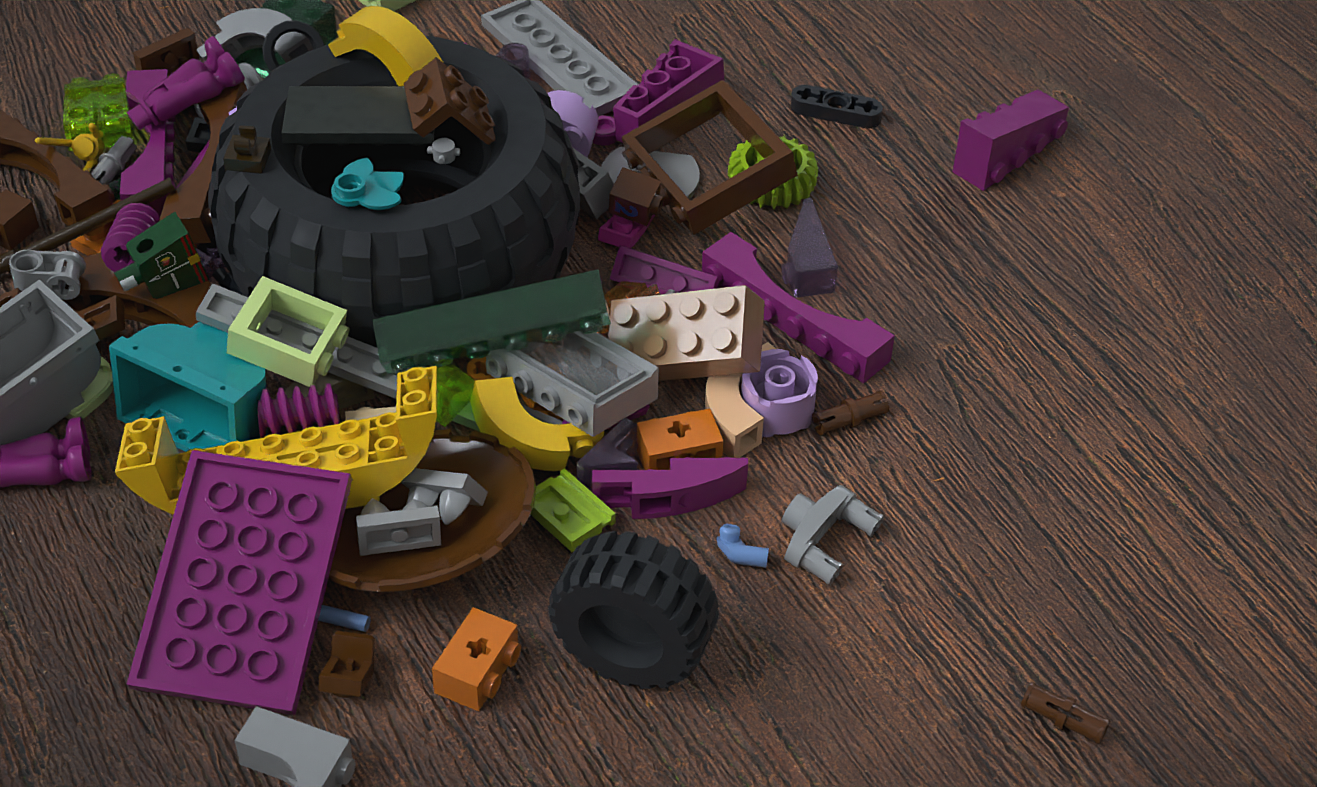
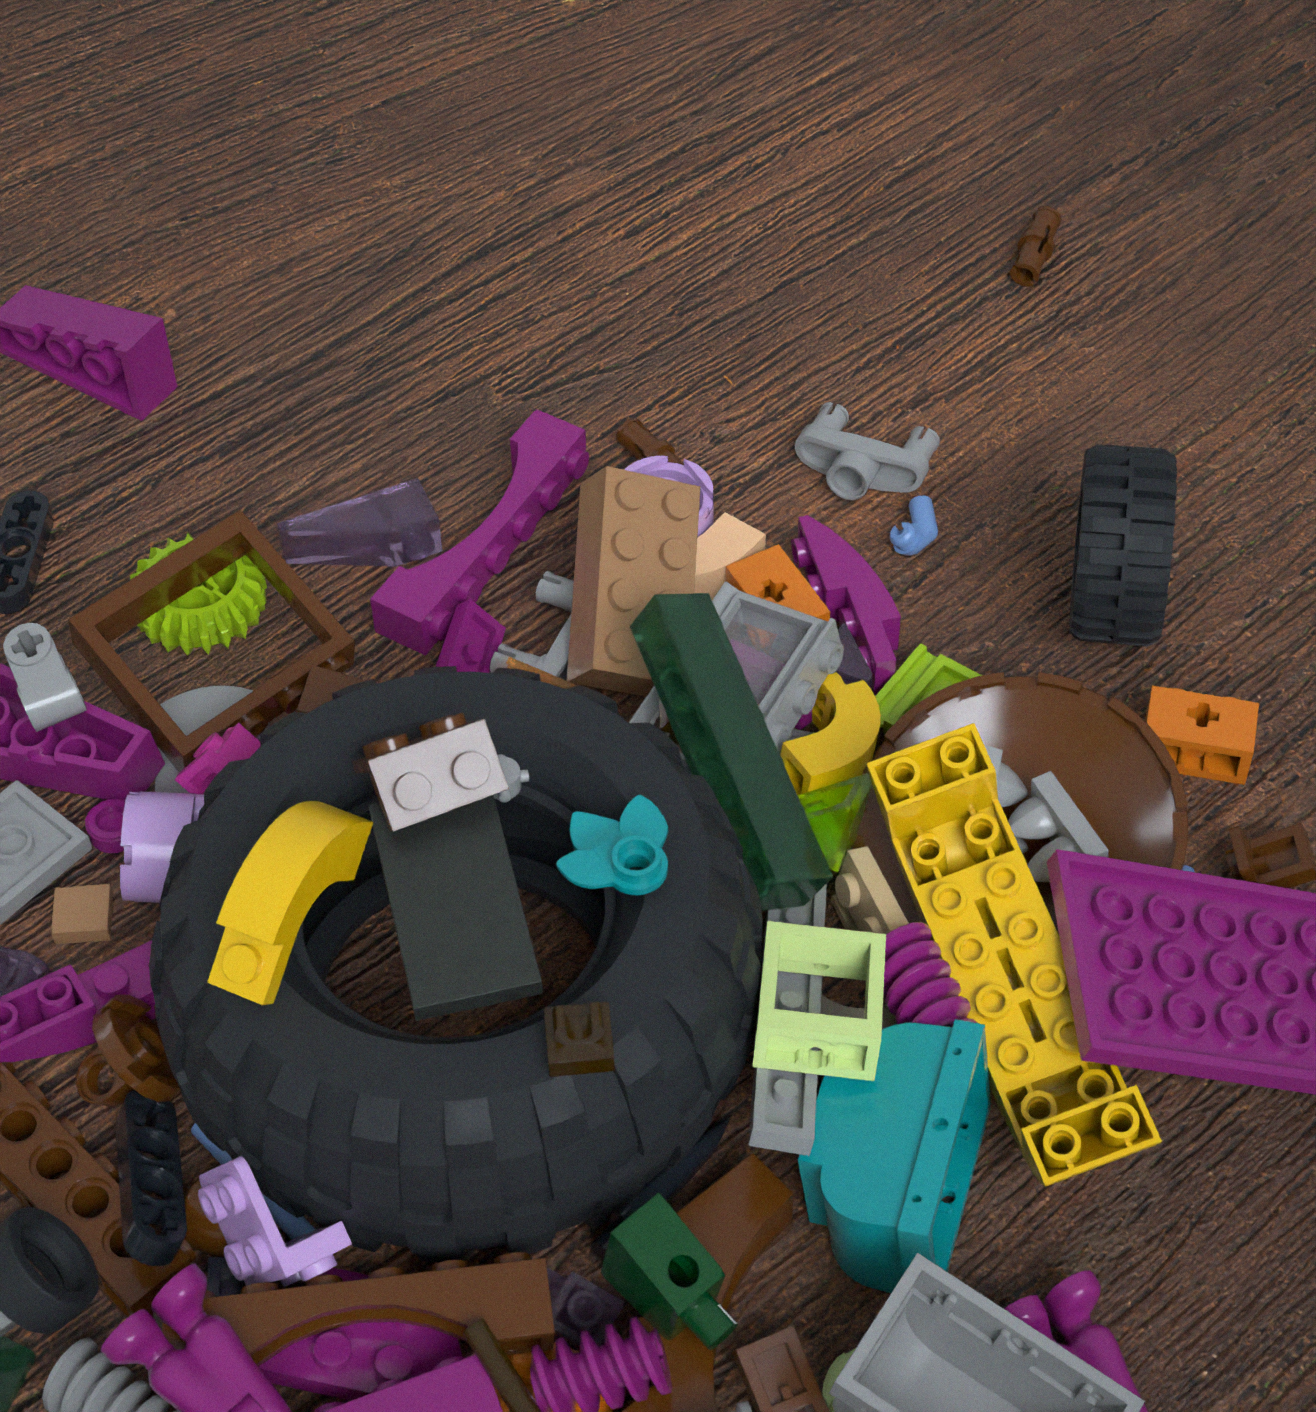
camera: 100 degrees left, 5 degrees up
(603, 147) = (214, 755): none -> dark pink brick
(682, 69) = (41, 676): none -> light grey piece

